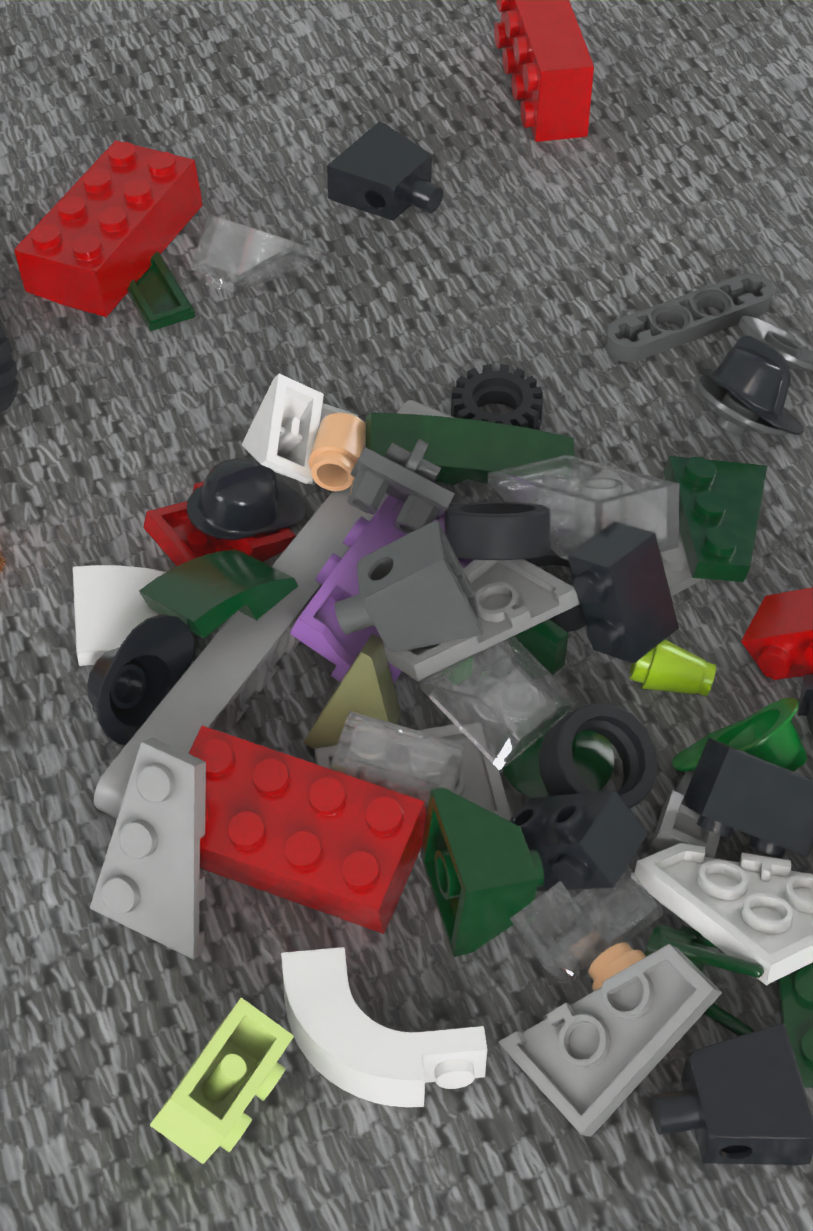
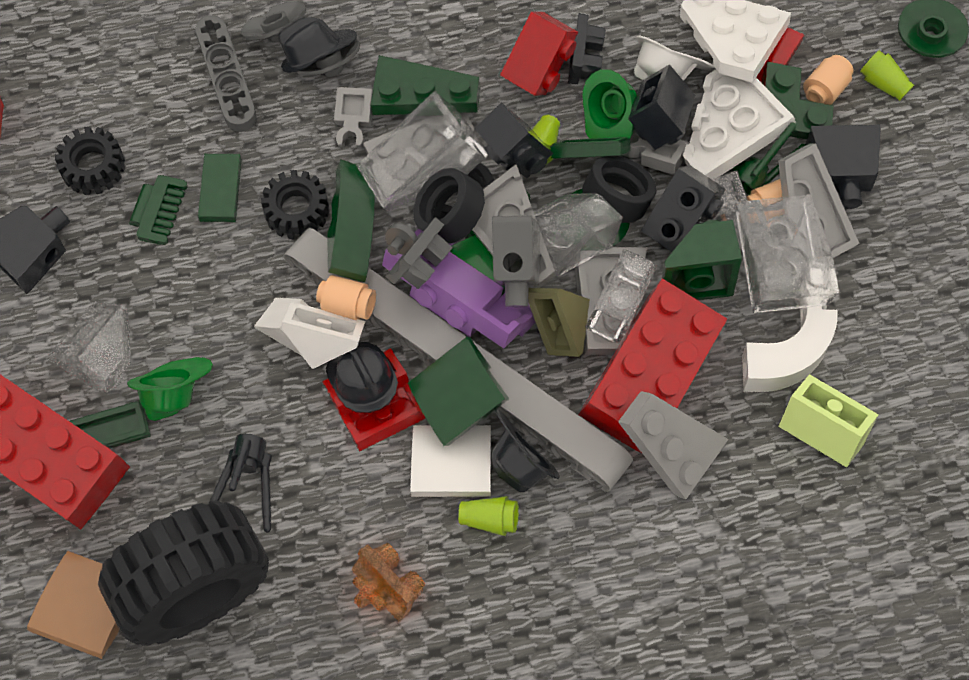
camera: 80 degrees left, 15 degrees up
(50, 670) = (491, 515): none -> lime cone
(121, 410) = (246, 458): none -> black plant
(205, 323) = (169, 386): none -> green piece
(467, 279) = (149, 208): none -> dark green piece
(498, 966) = (785, 254): none -> clear slope
(511, 338) = (219, 188): none -> dark green tile
(516, 229) = (86, 143): none -> black tyre
(653, 447) = (352, 112): none -> light grey plate
(663, 719) = (590, 147): none -> dark green tile

